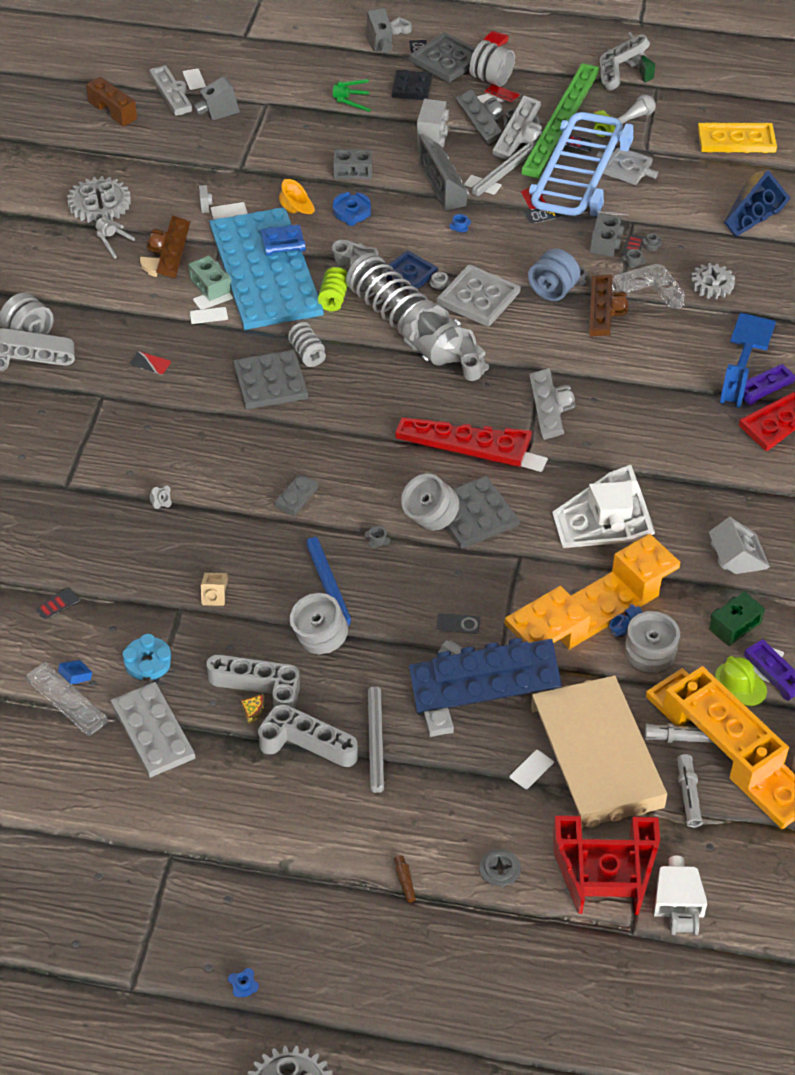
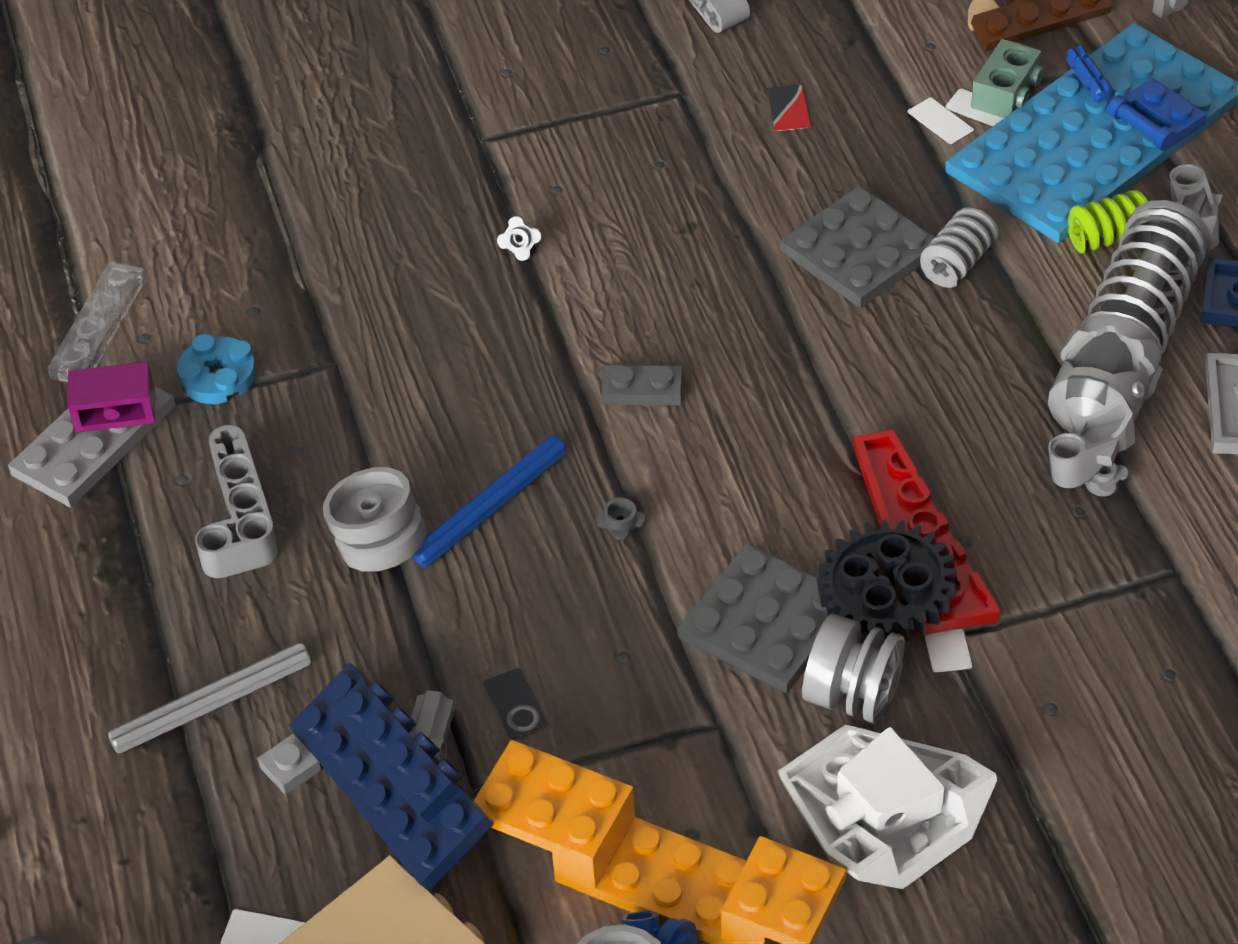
camera: 65 degrees right, 0 degrees up
(57, 603) = (264, 235): black sticker -> none
(75, 671) = (140, 305): blue plate -> none
(148, 701) = (111, 396): none -> magenta brick
(213, 589) = (386, 371): tan bracket -> none
(228, 210) = (1186, 36): white sticker -> none
(237, 248) = (1089, 74): none -> blue axle
(252, 707) = (186, 524): tile -> none
(338, 748) = (171, 580): light grey beam -> none
(430, 502) = (714, 539): light grey wheel -> none
(500, 460) = (920, 572): none -> black gear
(536, 488) = (845, 665): none -> light grey wheel
(550, 402) = (1097, 611): light grey plate -> none

